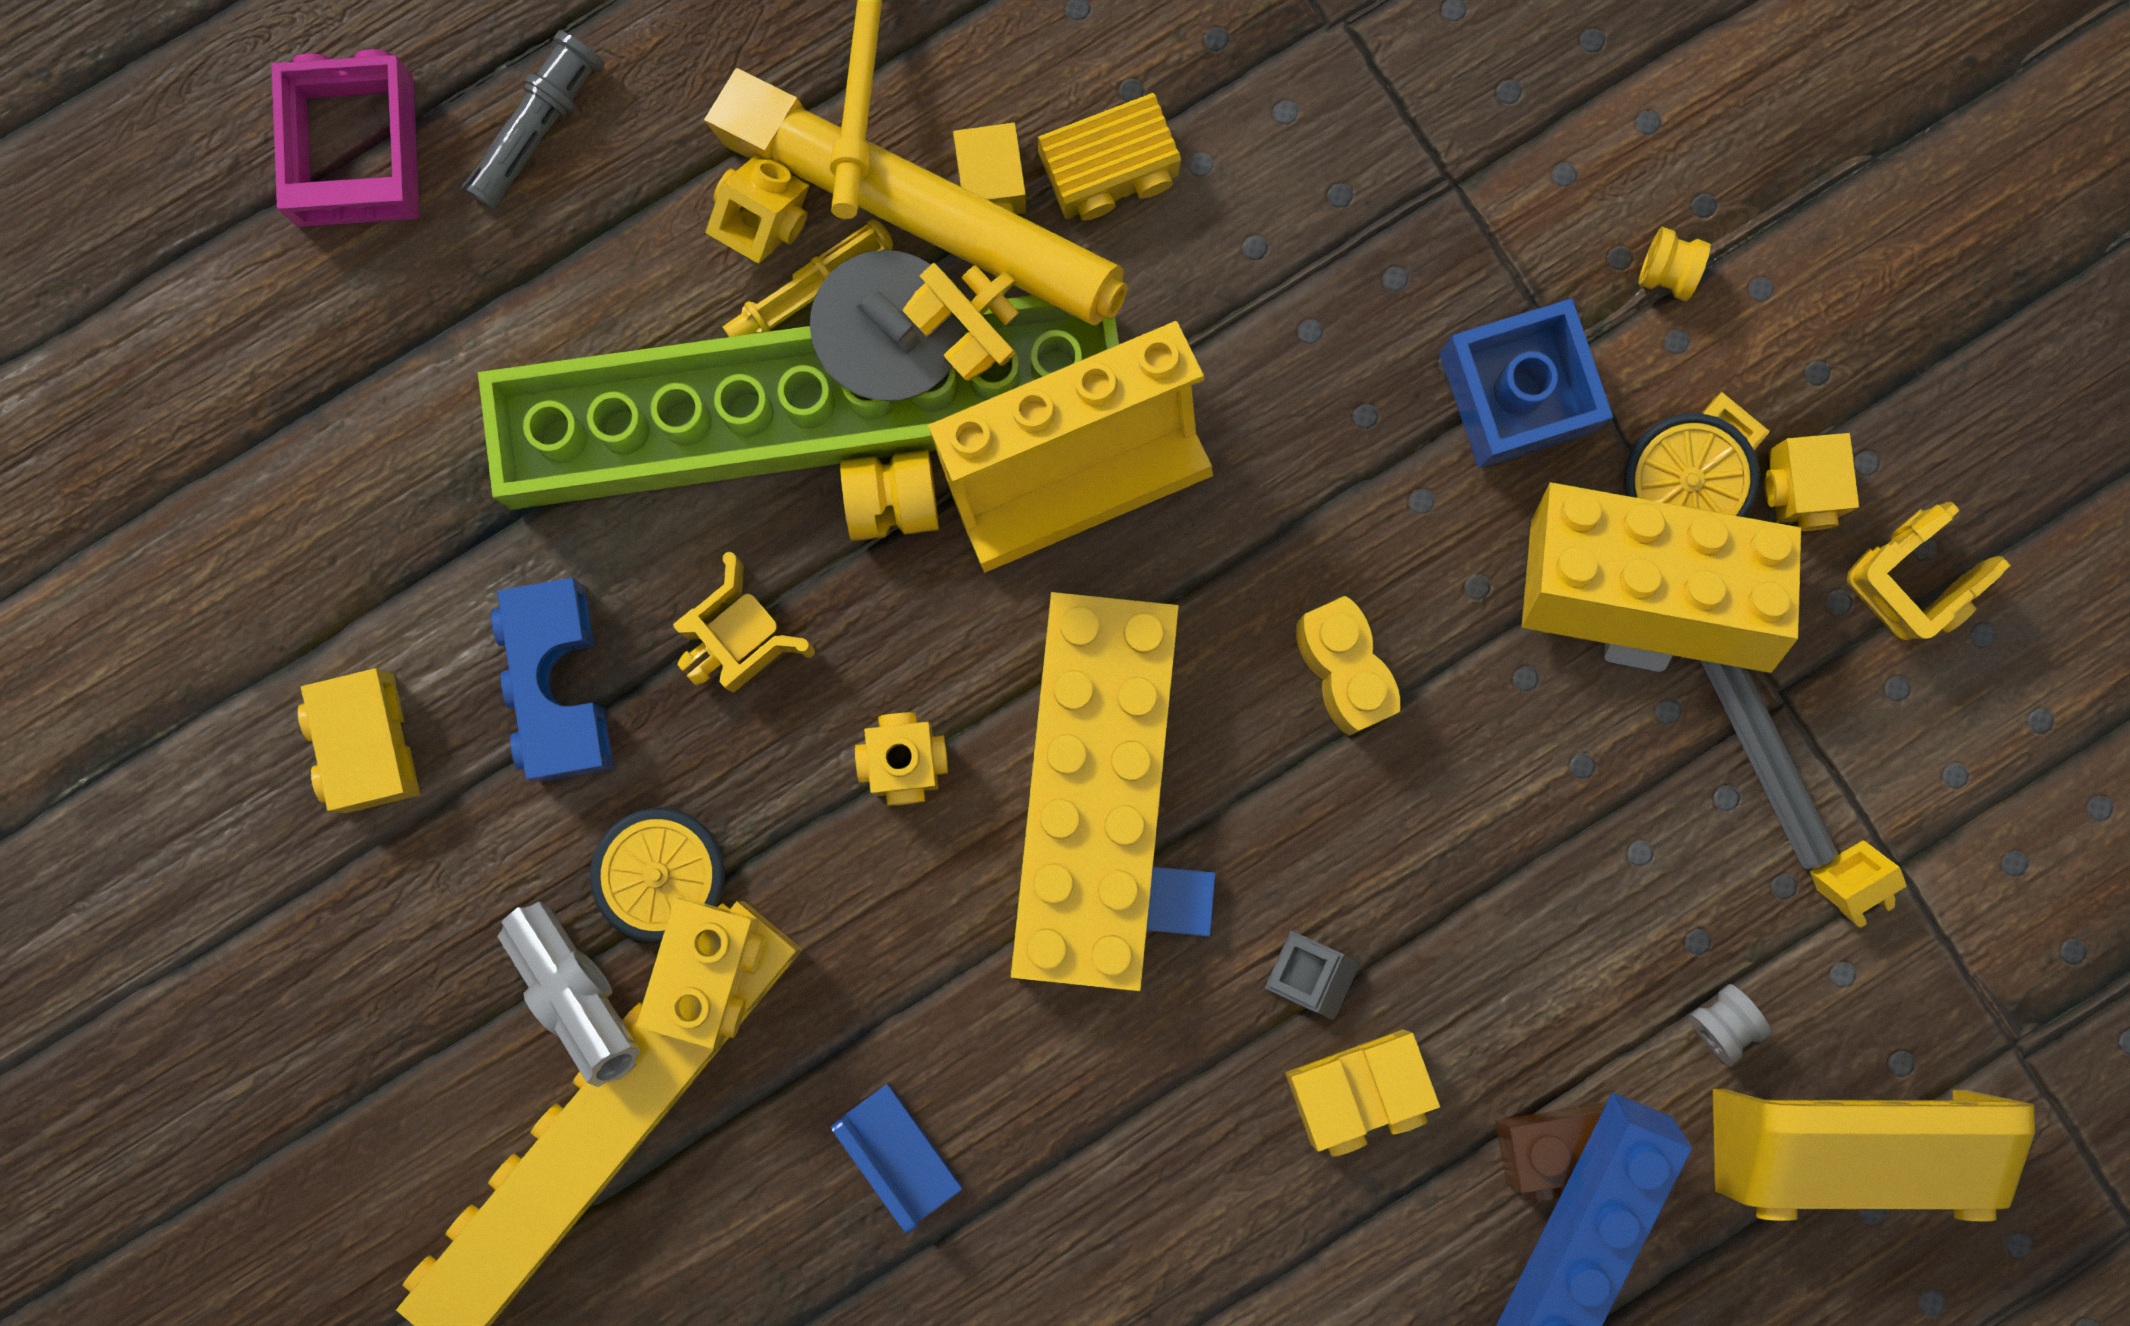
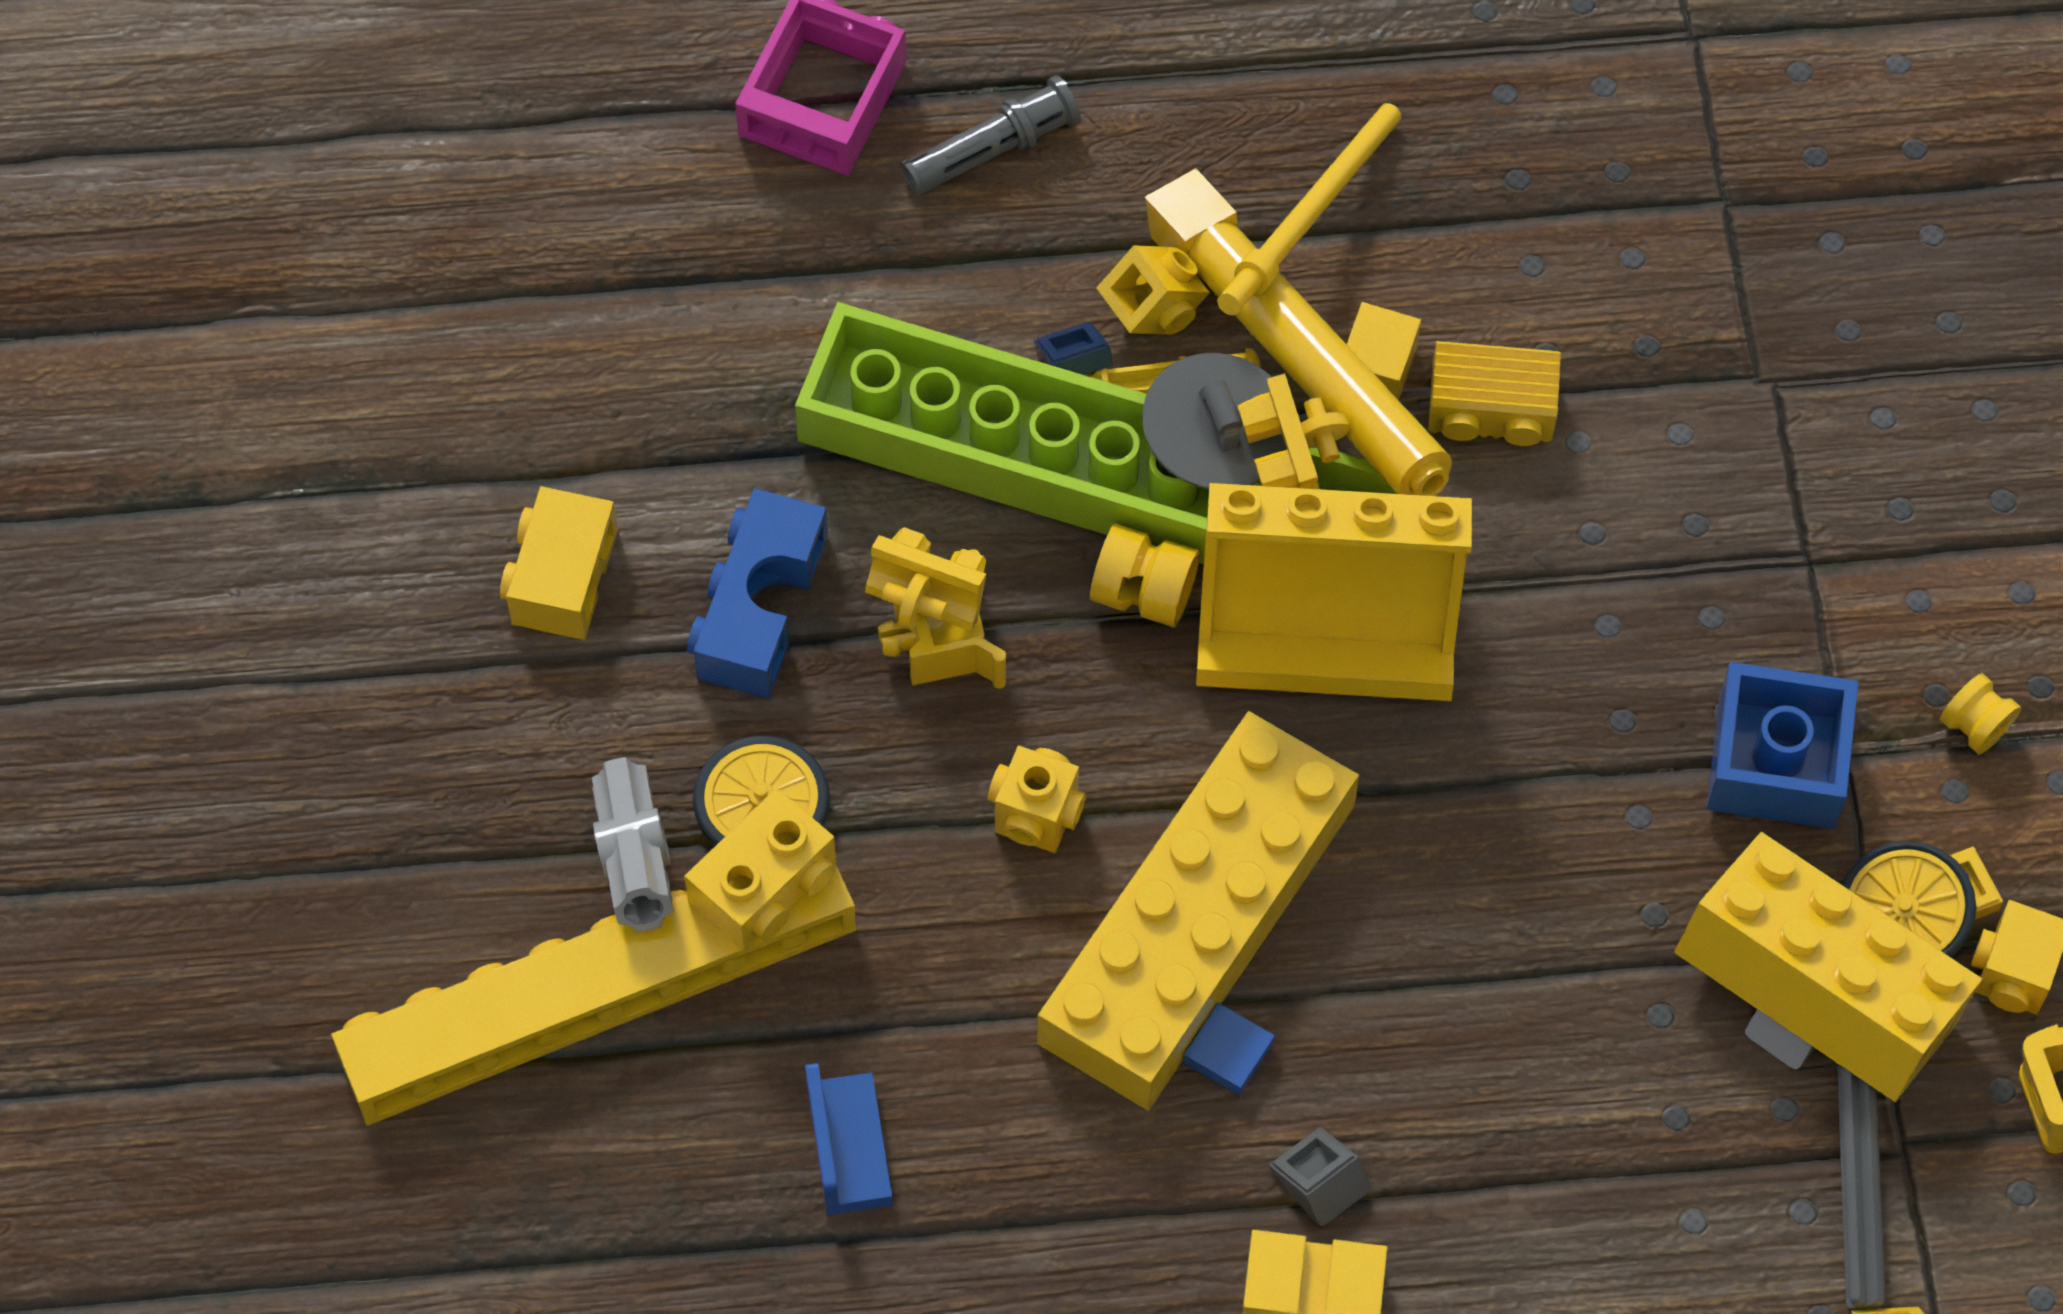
camera: 30 degrees right, 20 degrees down
(702, 622) = (926, 583): none -> yellow hips
(715, 302) = (1075, 349): none -> dark blue tile
(1339, 650) = (1491, 912): yellow brick -> none

